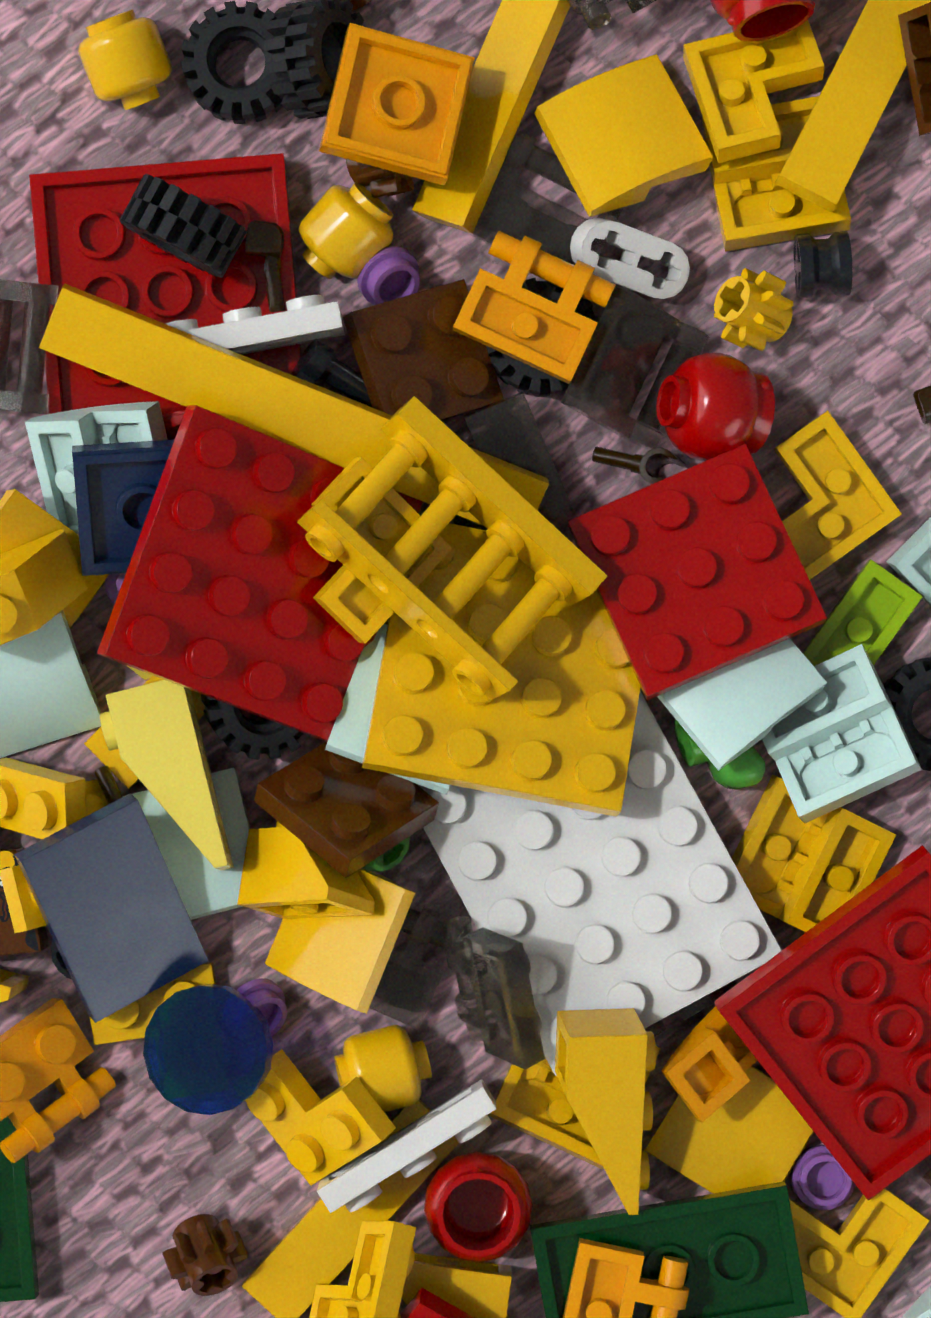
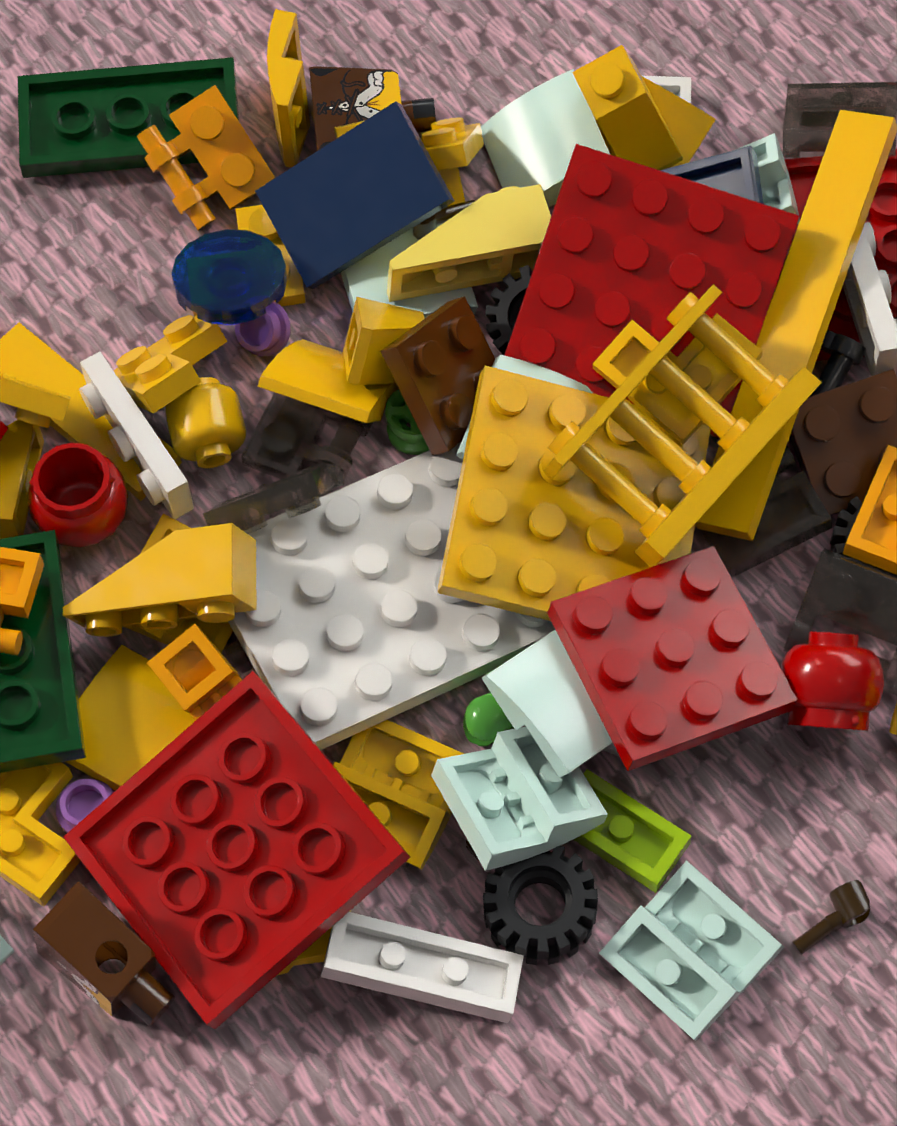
camera: 95 degrees right, 25 degrees down
(205, 1254) = (48, 289): reddish brown gear -> none
(646, 465) = (772, 631): dark brown hand -> none
(843, 495) = (741, 814): yellow plate -> none

